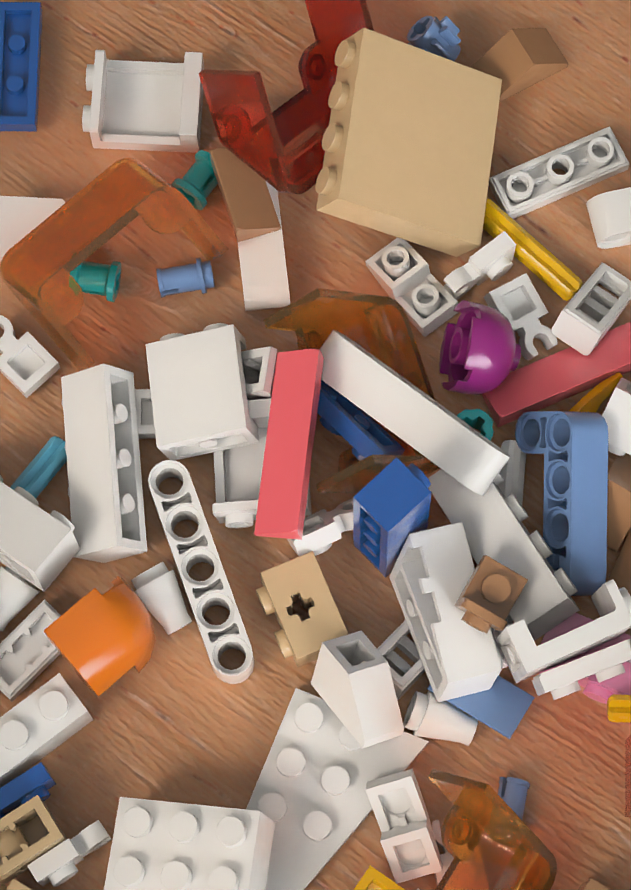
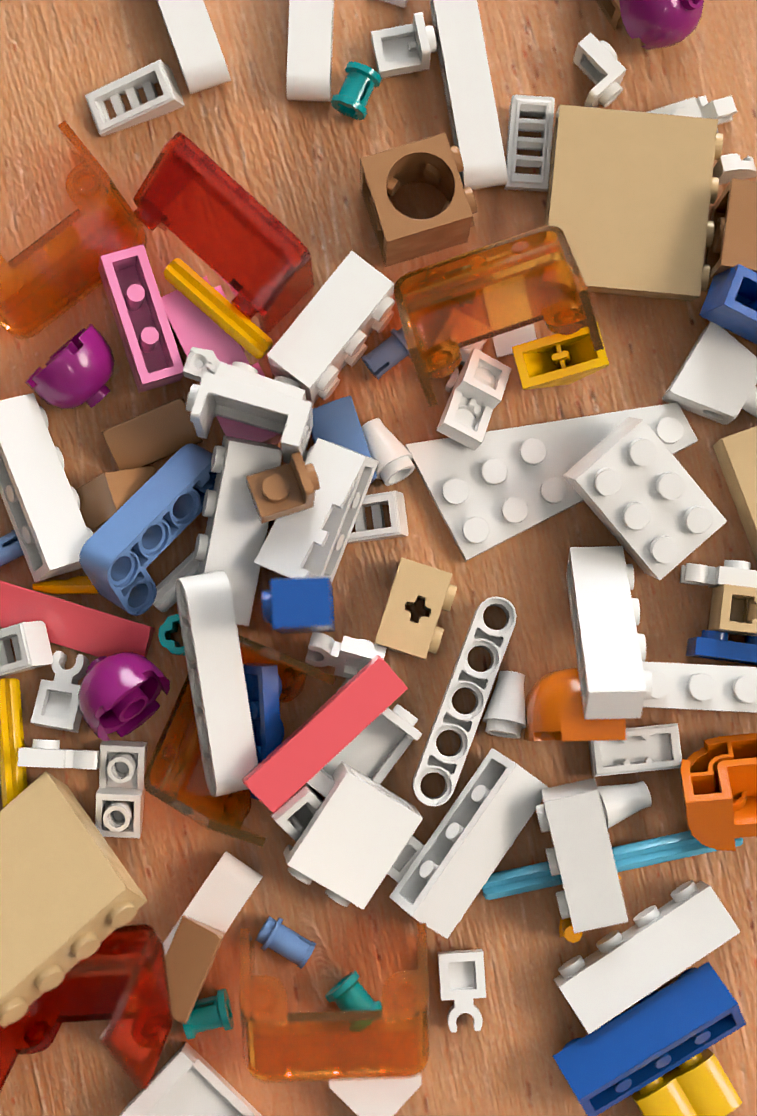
camera: 145 degrees left, 10 degrees up
(132, 710) = (606, 633): none -> white brick
(358, 688) = (427, 514): white slope -> none
(571, 775) = (334, 328): none -> white brick

